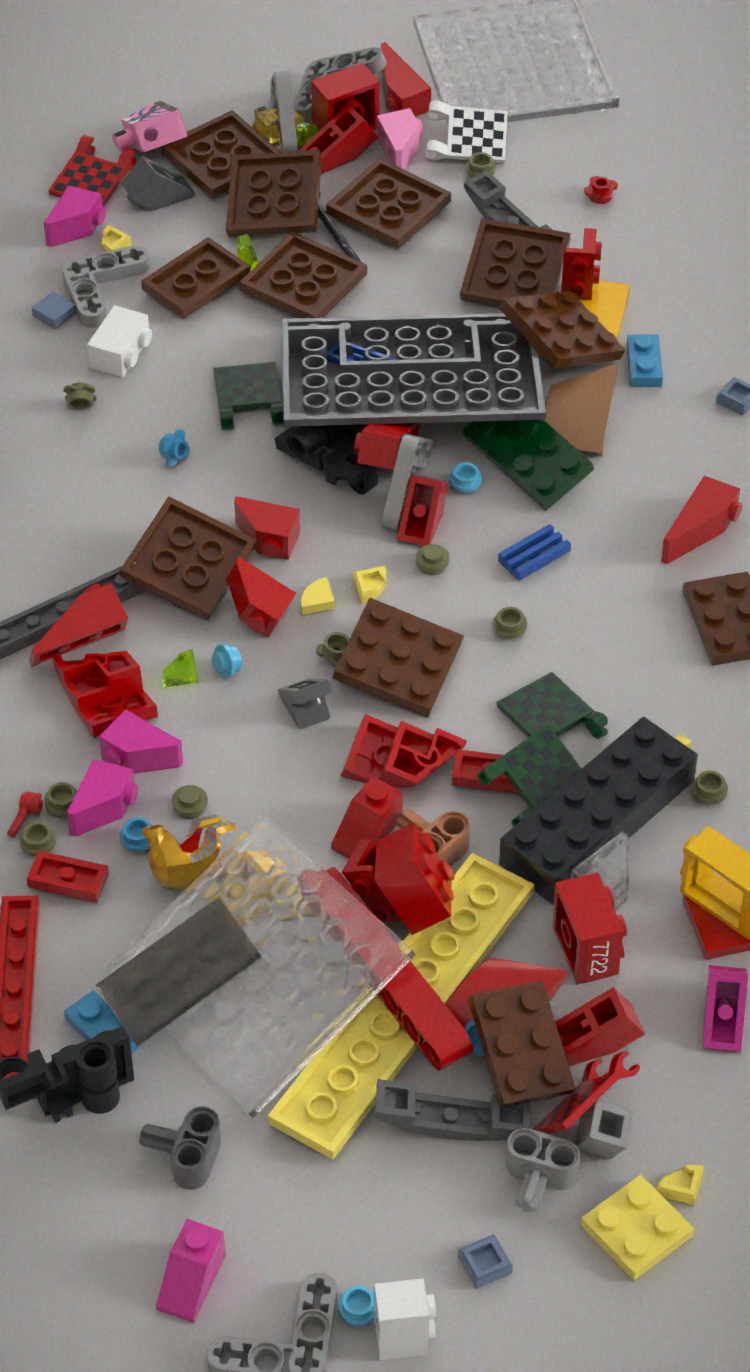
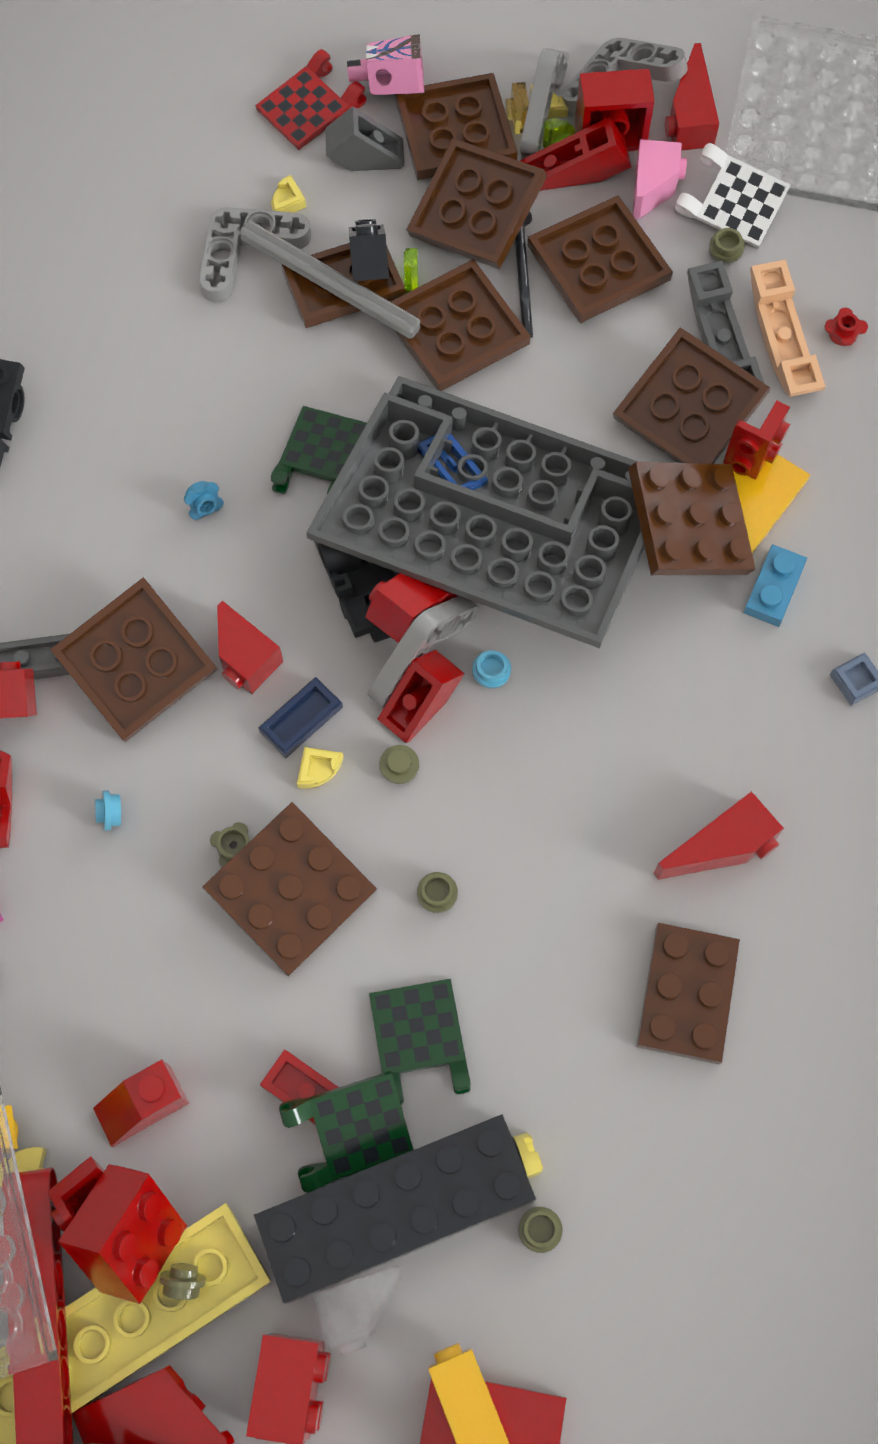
camera: 25 degrees right, 20 degrees up
(53, 310) = (179, 264): sand blue tile -> none
(74, 216) = (257, 151): dark pink slope -> none
(80, 395) = (142, 390): olive plate -> none
(119, 341) = (218, 334): white brick -> none
(181, 670) = (62, 797): clear neon green tile -> none
(188, 275) = (330, 279): none -> light grey axle
(211, 244) = (368, 251): none -> black slope
(258, 597) = (178, 748): red slope -> none
(307, 701) = (163, 900): dark grey slope -> none
(317, 597) = (251, 762): light yellow tile -> none
(337, 557) = (300, 717): none -> dark blue tile
(398, 754) = (224, 1020): red slope -> none
(448, 833) = (196, 1160): nougat beam -> none
(472, 898) = (182, 1281): none -> olive plate
(530, 549) = (515, 787): blue tile -> none
(531, 456) = (580, 685): dark green plate -> none
(551, 203) = (782, 330): none -> light nougat slope
(582, 408) = (659, 634): medium nougat slope -> none

